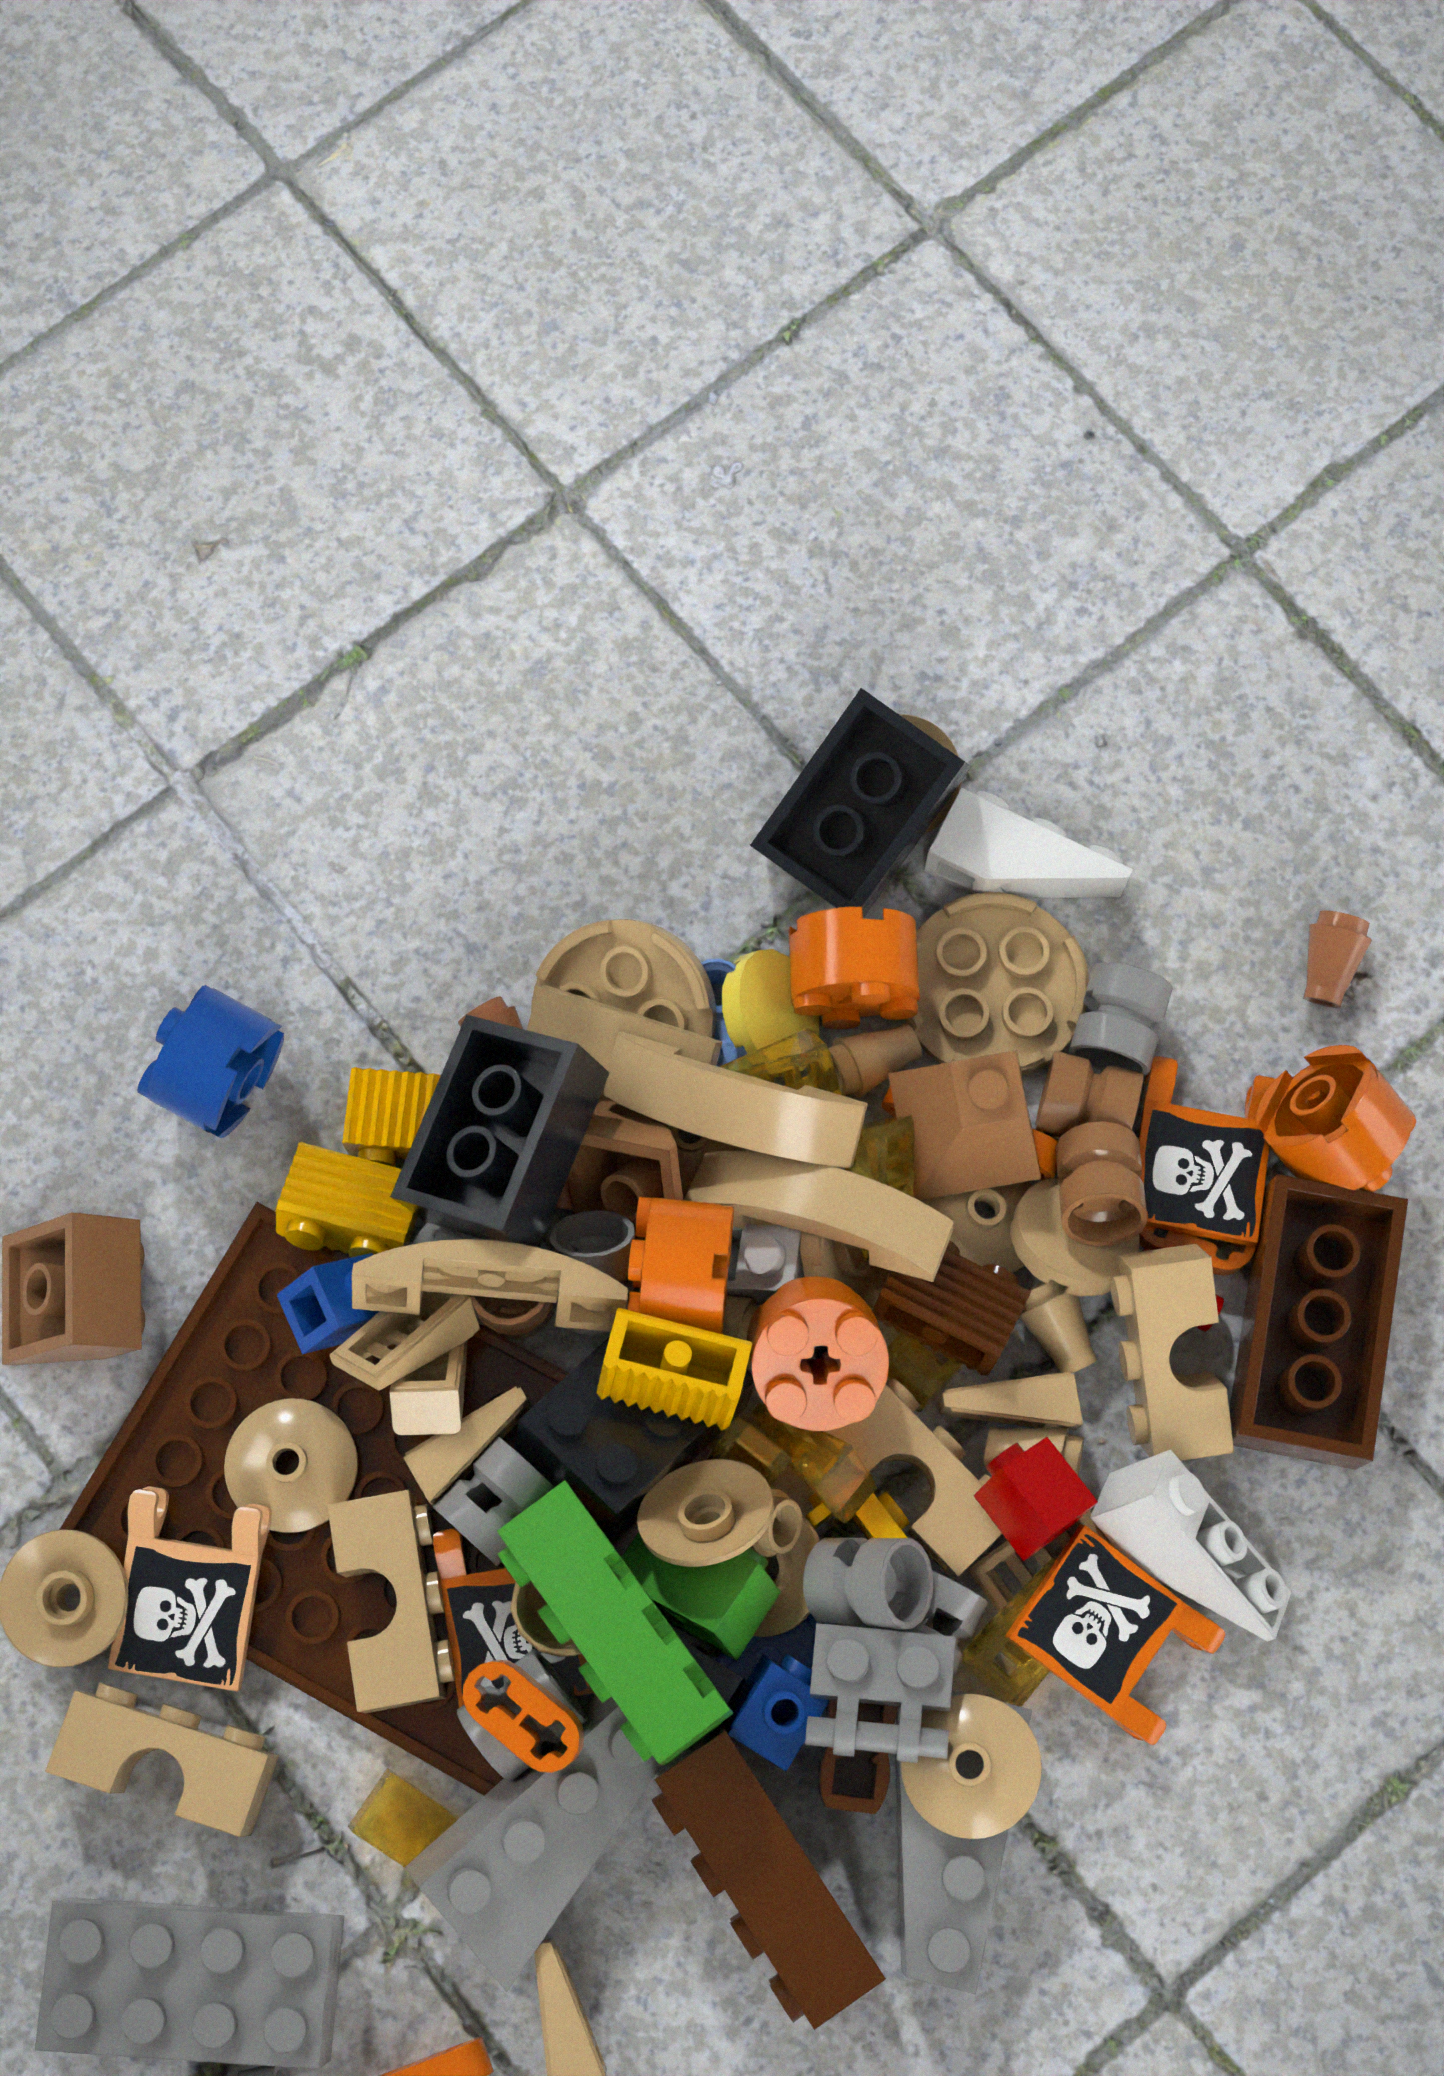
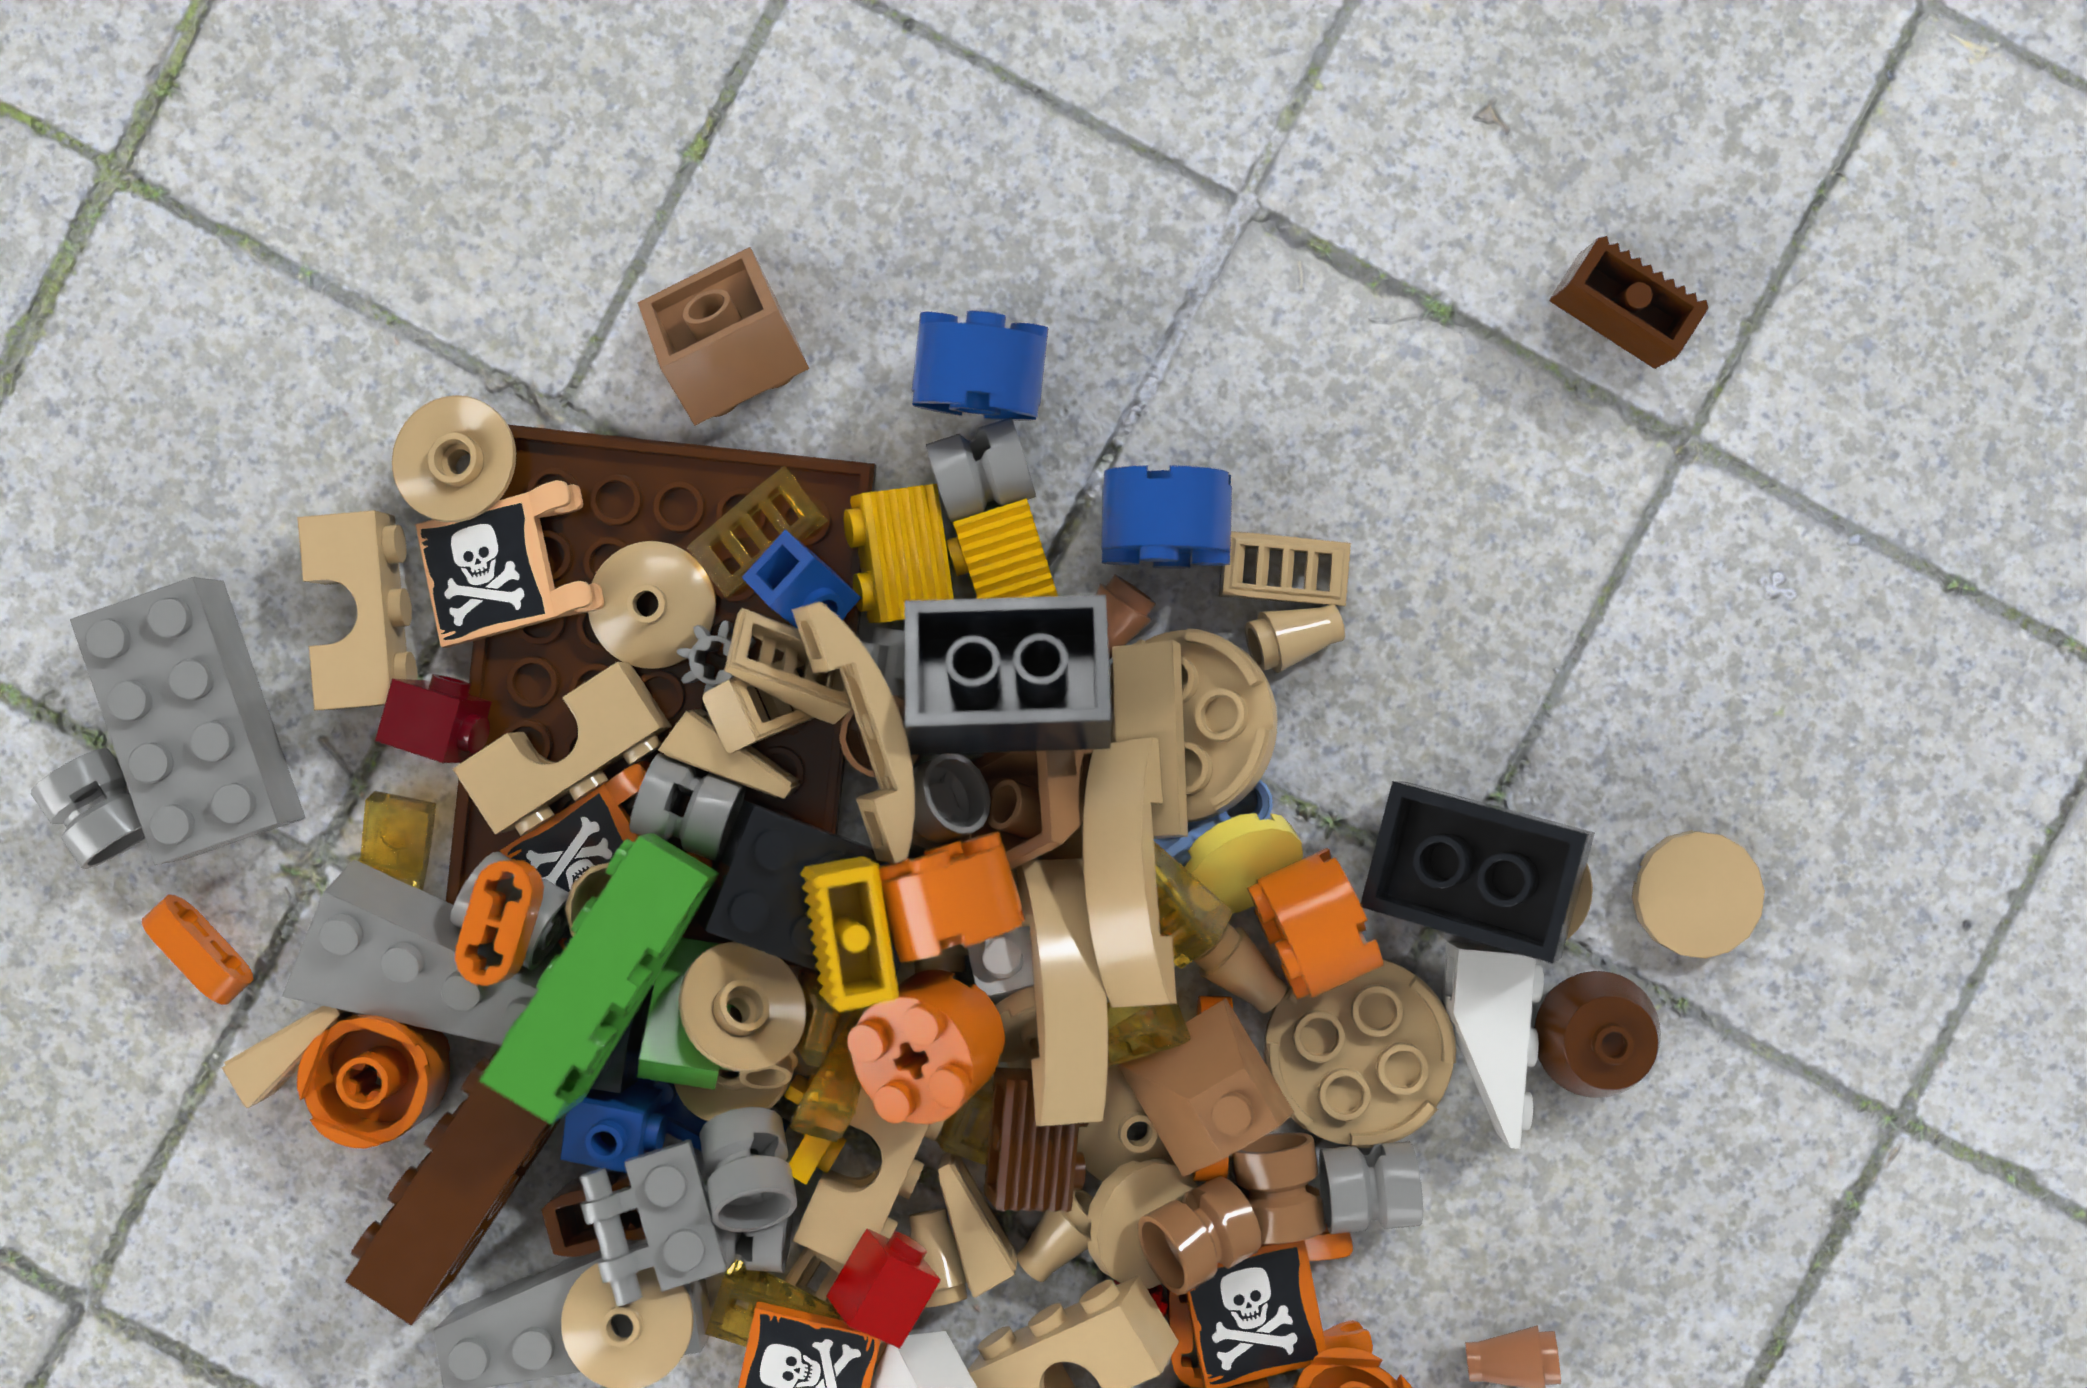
camera: 60 degrees right, 15 degrees up
(232, 1284) = (779, 483): none -> clear yellow slope
(303, 1719) = (434, 719): none -> dark red brick
(307, 1100) = (981, 470): none -> light grey wheel
(370, 1433) = (696, 655): none -> light grey gear
(420, 492) = (1629, 303): none -> reddish brown brick
(424, 949) = (1166, 516): none -> blue brick
(500, 919) = (1232, 575): none -> tan slope
(584, 889) = (1290, 636): none -> tan cone
(633, 1979) = (343, 1090): none -> orange brick
(968, 639) = (1698, 894): none -> tan tile
(1060, 769) = (1597, 1034): none -> reddish brown cone

